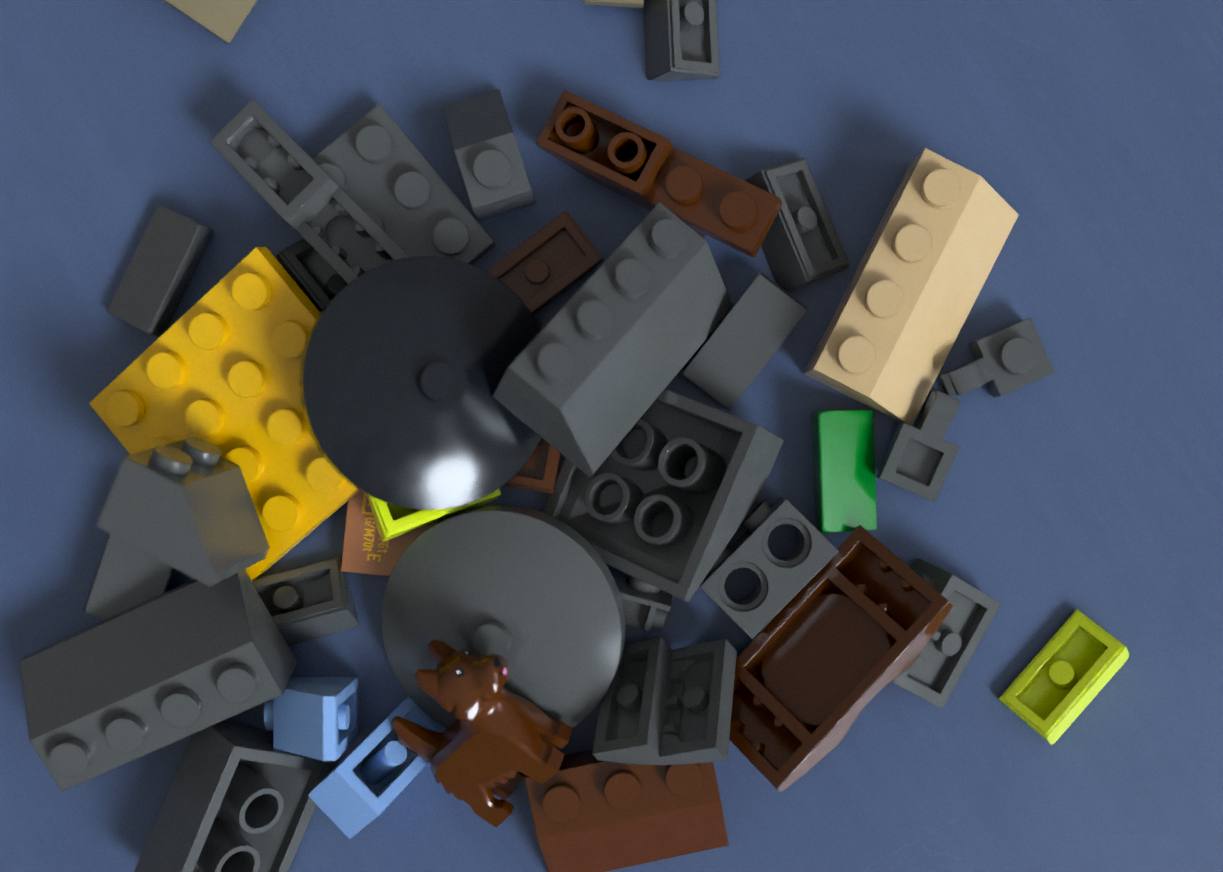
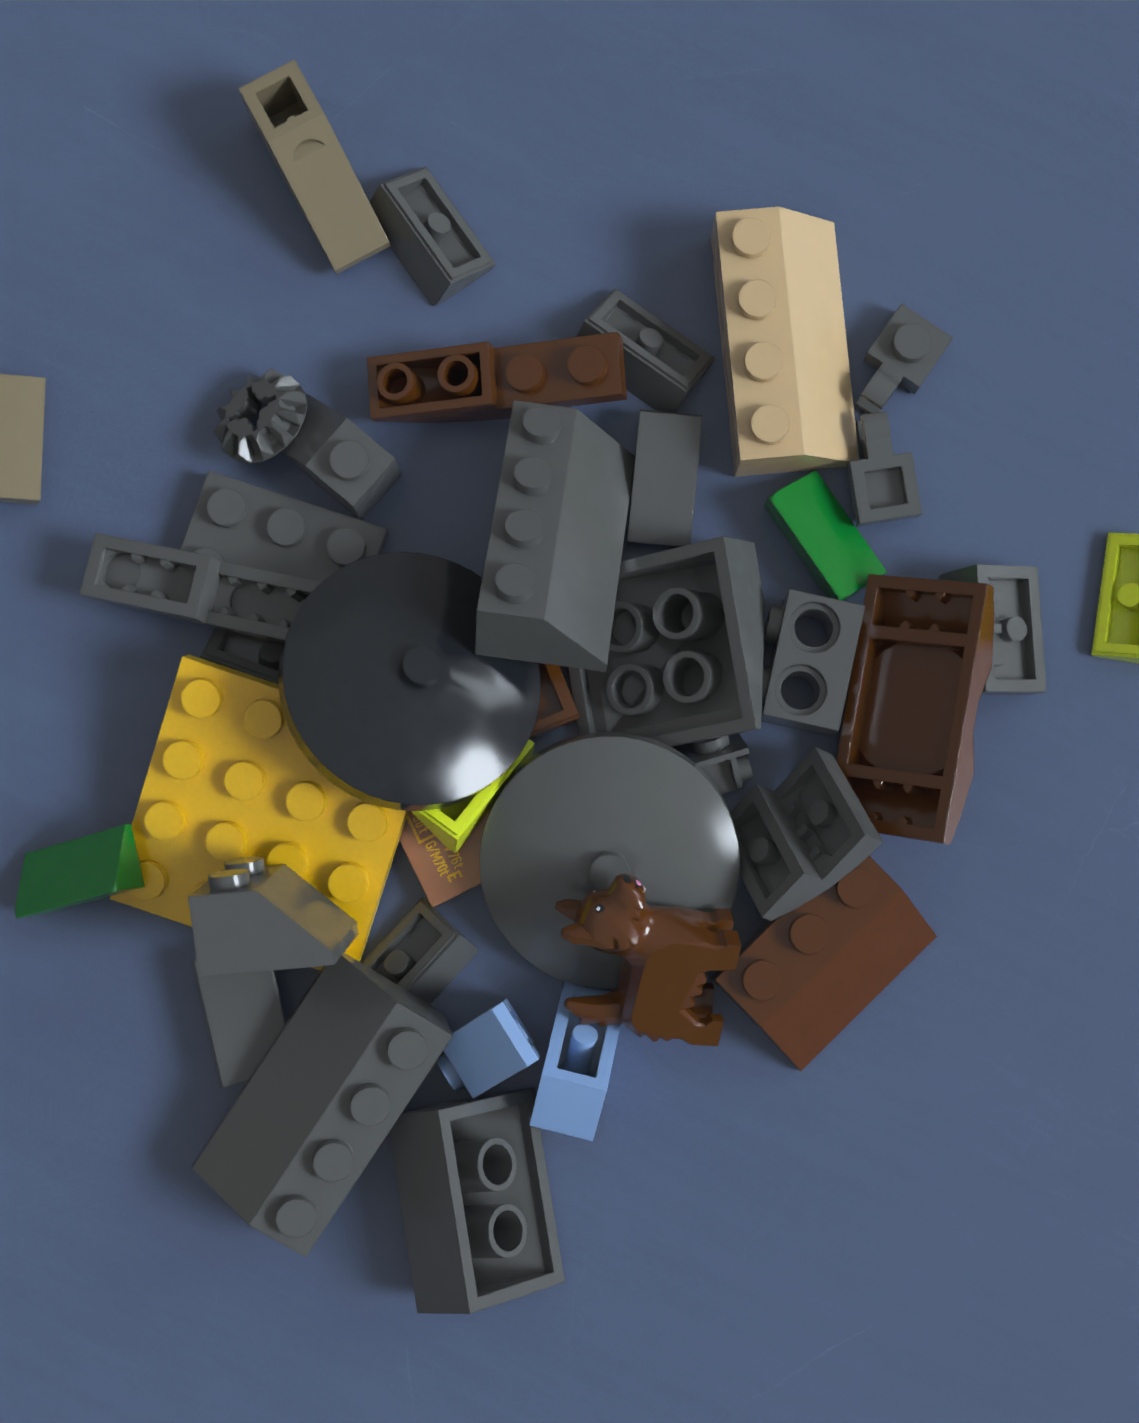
camera: 30 degrees left, 5 degrees down
(73, 368) = (78, 872): none -> green slope
(160, 271) = (100, 741): dark grey slope -> none
(457, 98) = (277, 421): none -> dark grey gear
(548, 262) = (448, 514): reddish brown hinge -> none

